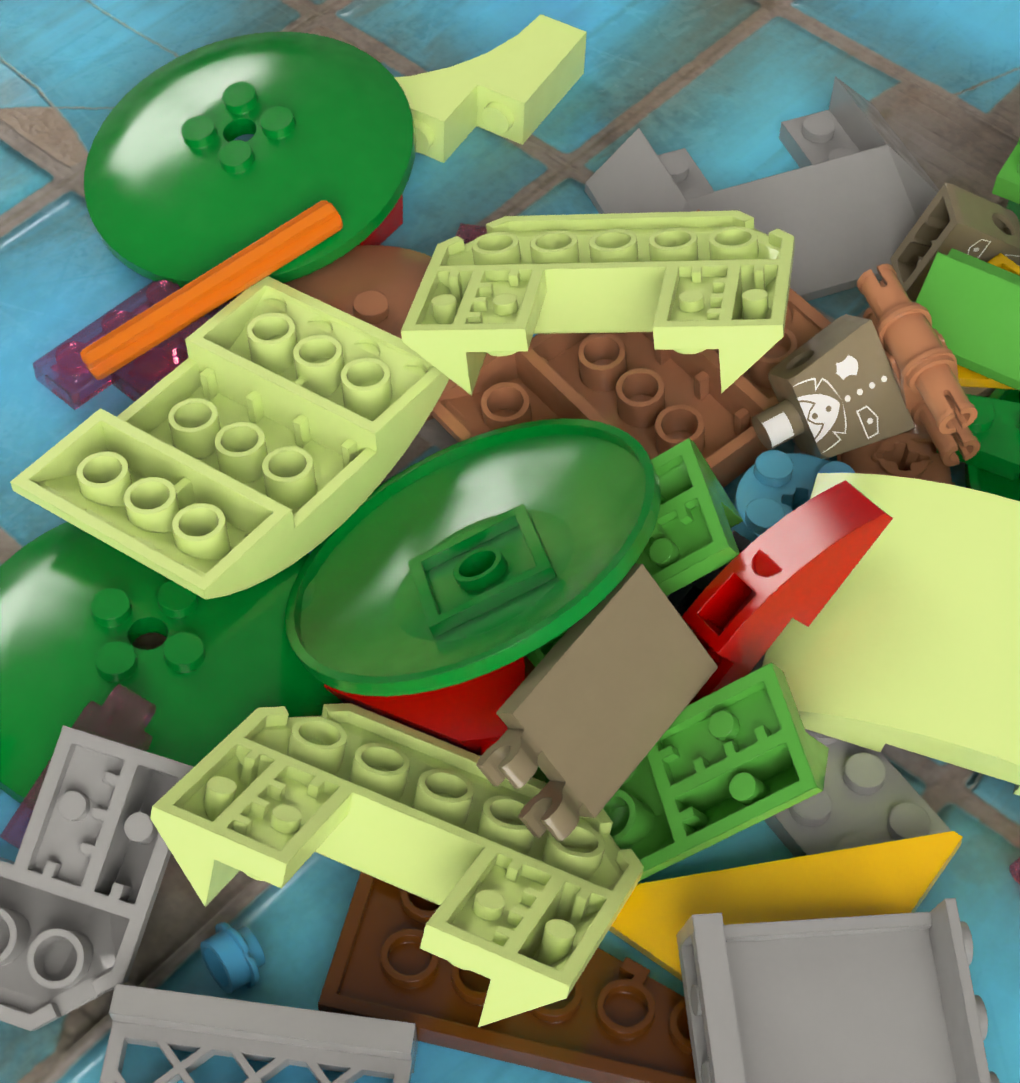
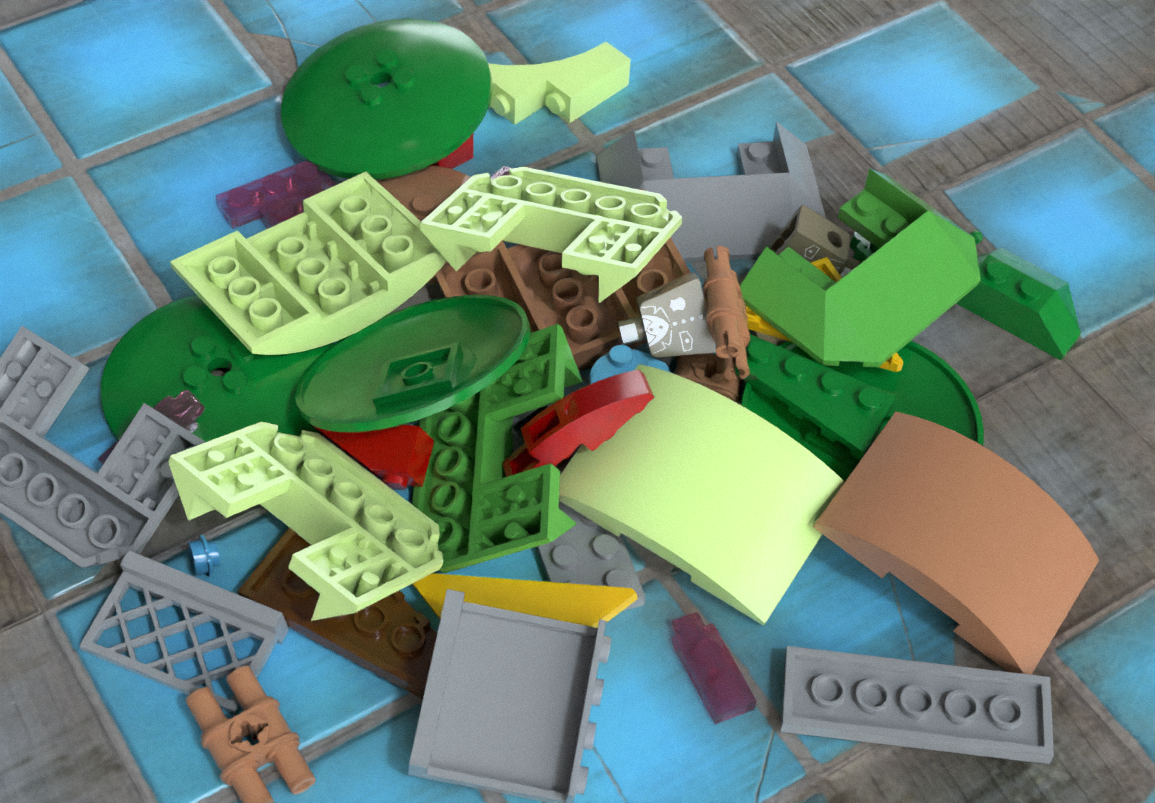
camera: 15 degrees right, 0 degrees up
(211, 290) = (330, 173): orange axle -> none
(598, 704) = (446, 461): dark tan tile -> none

